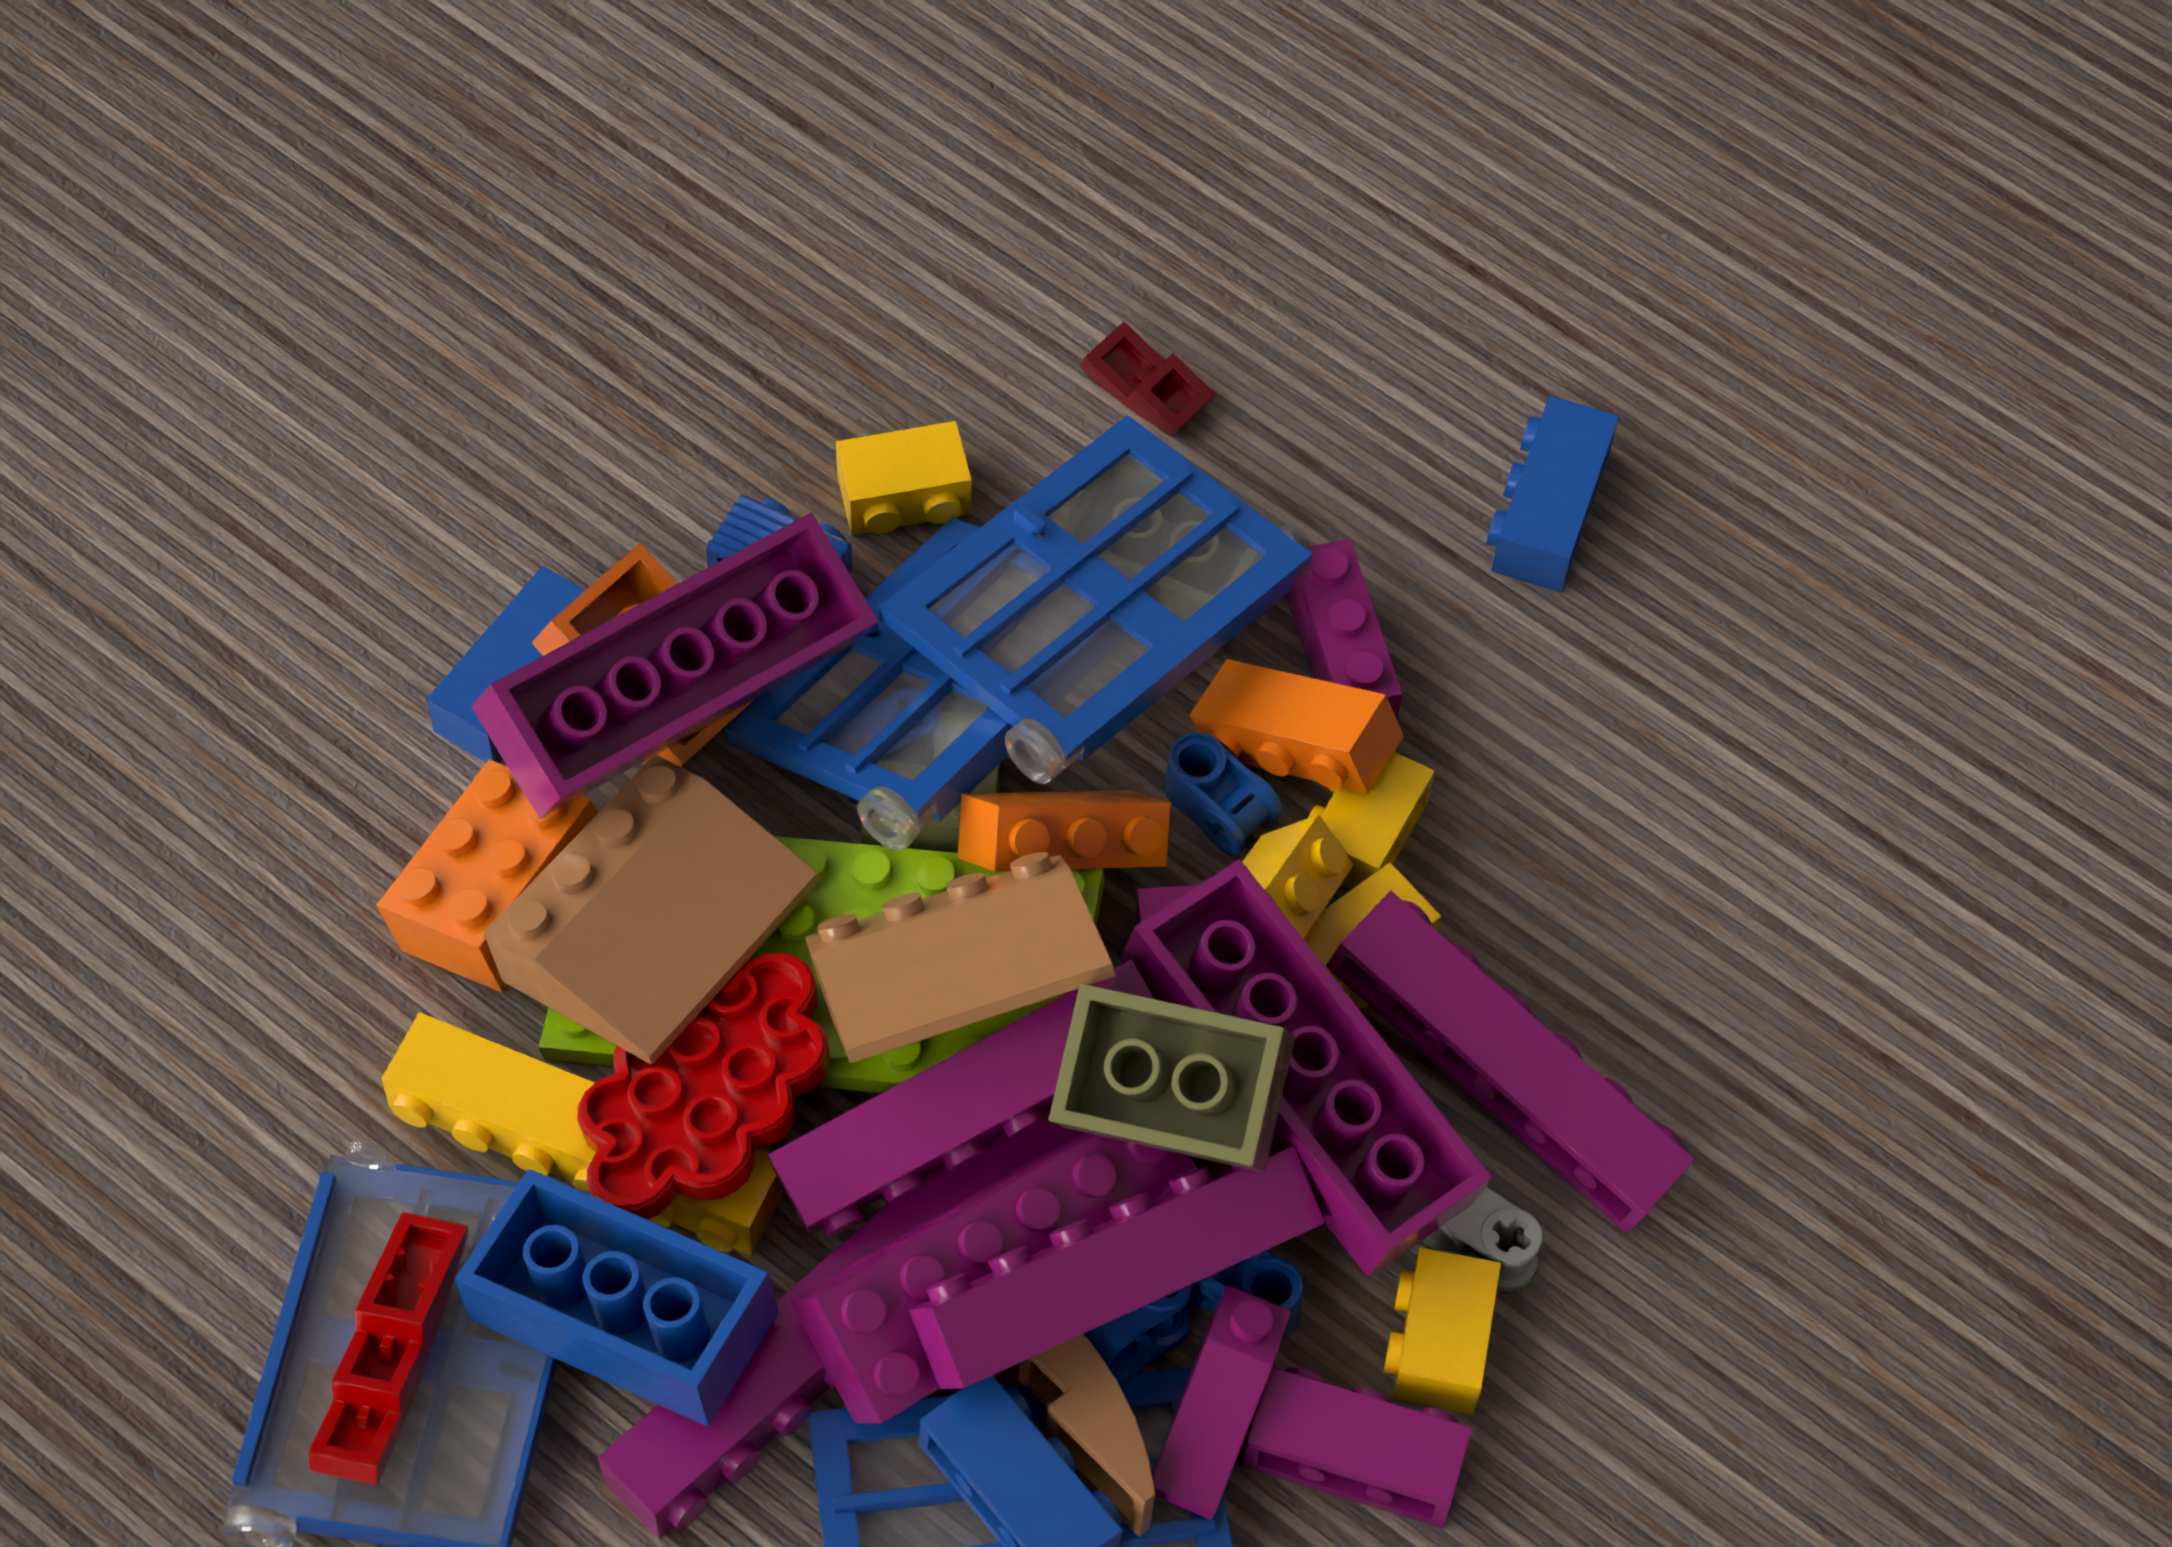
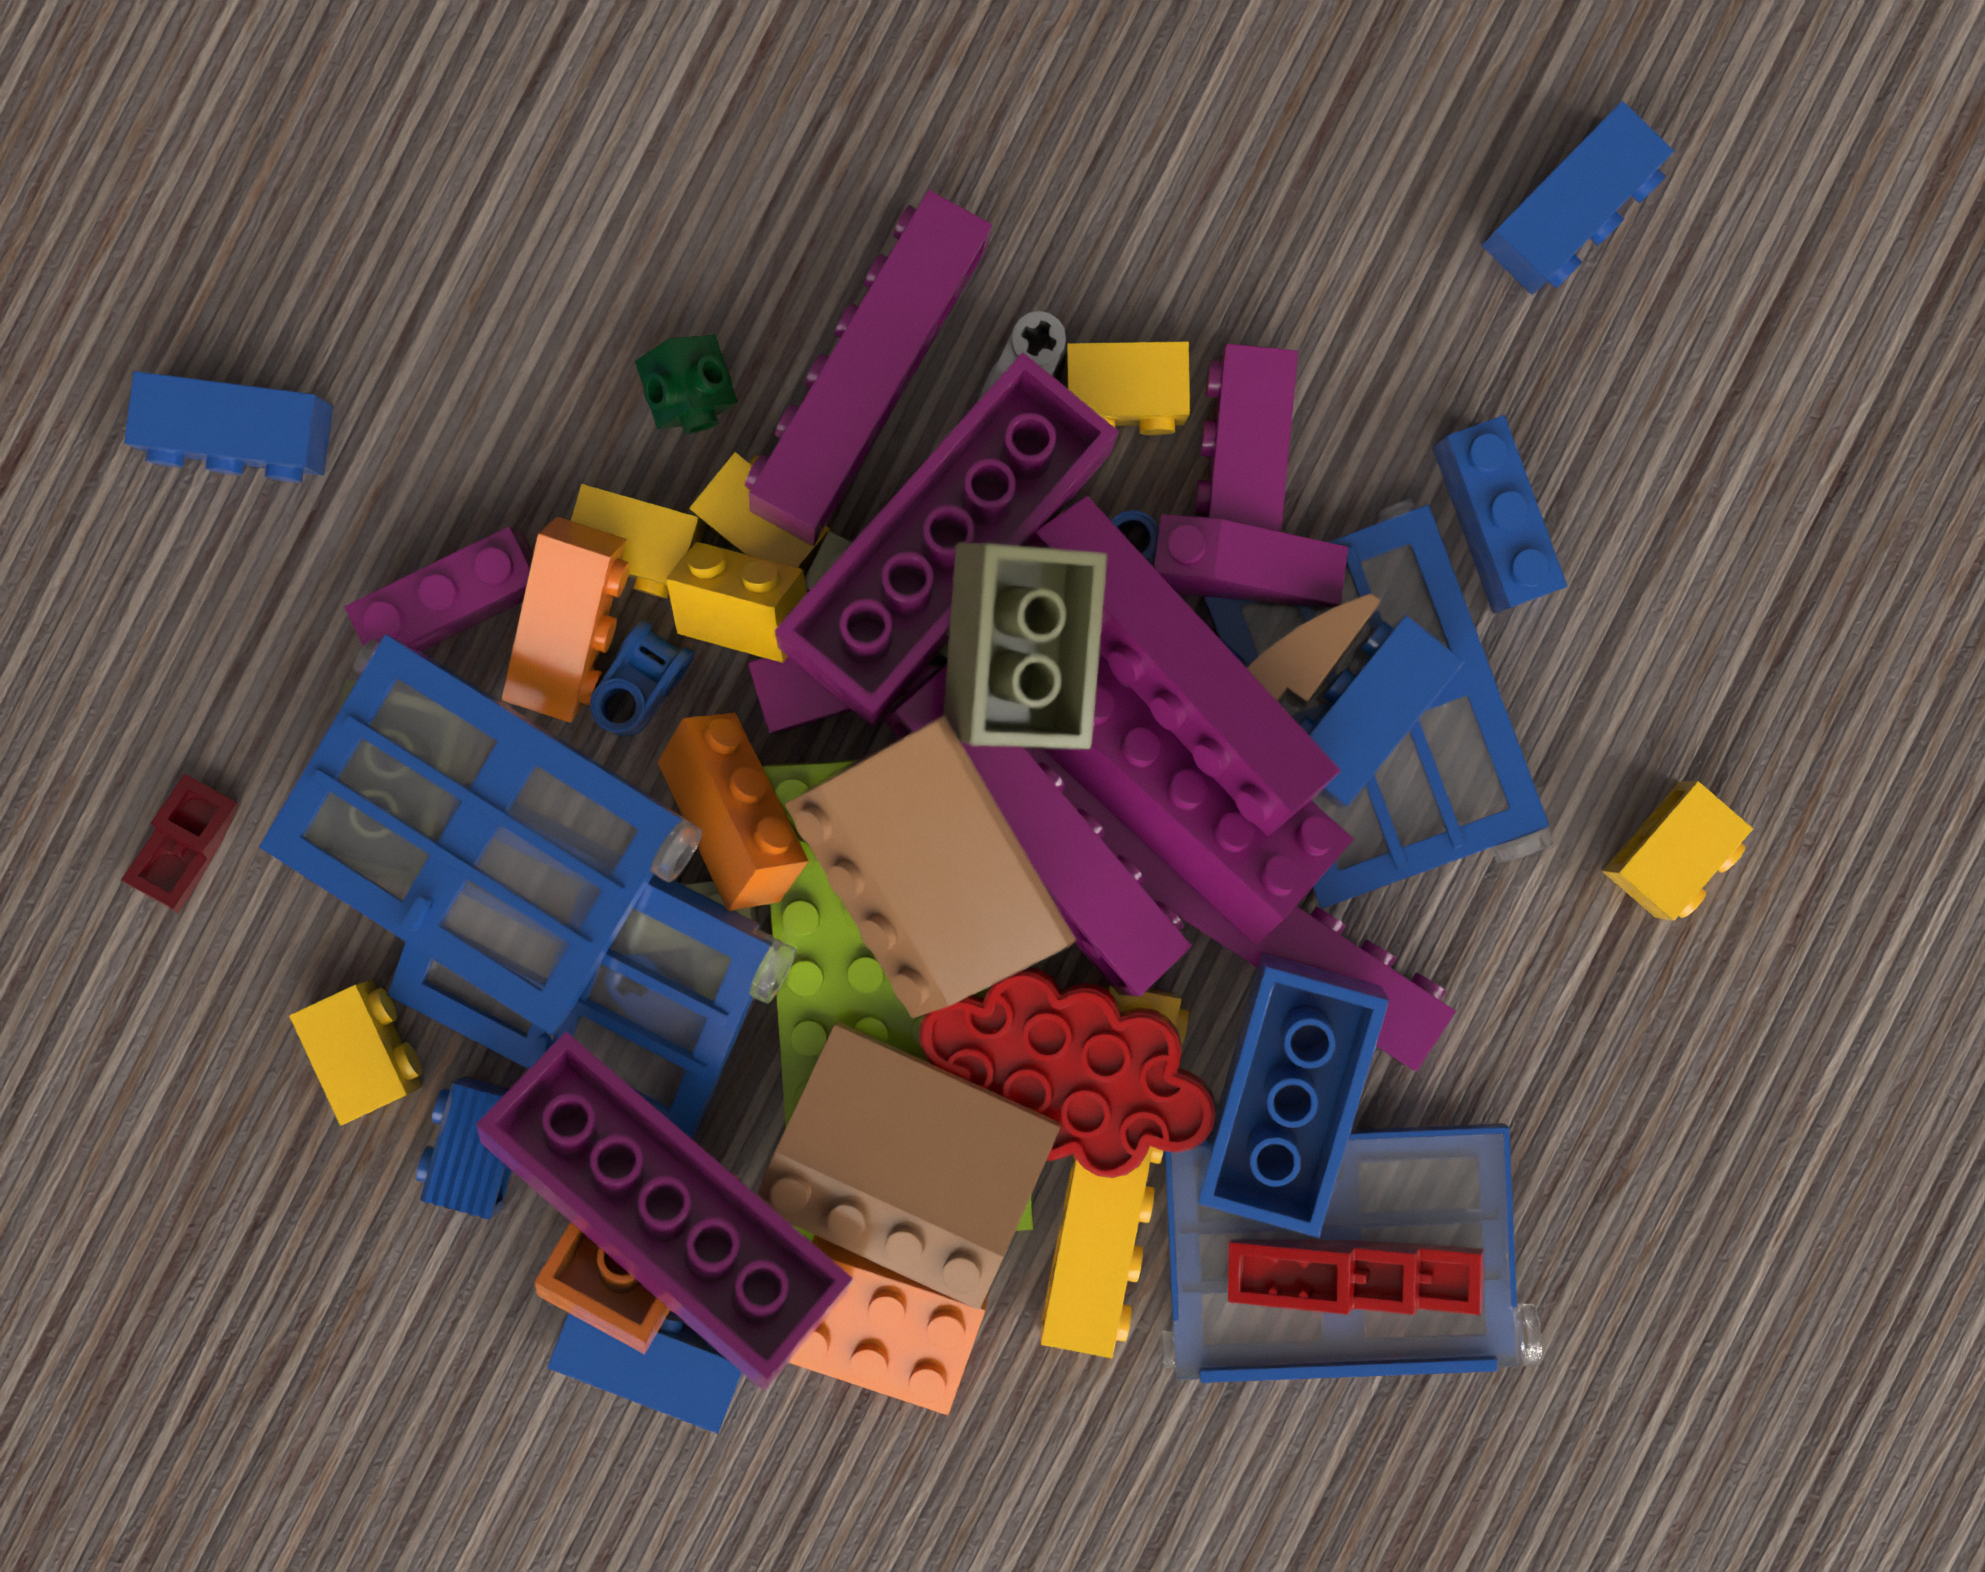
camera: 100 degrees left, 30 degrees up
(1523, 894) = (686, 383): none -> dark green brick

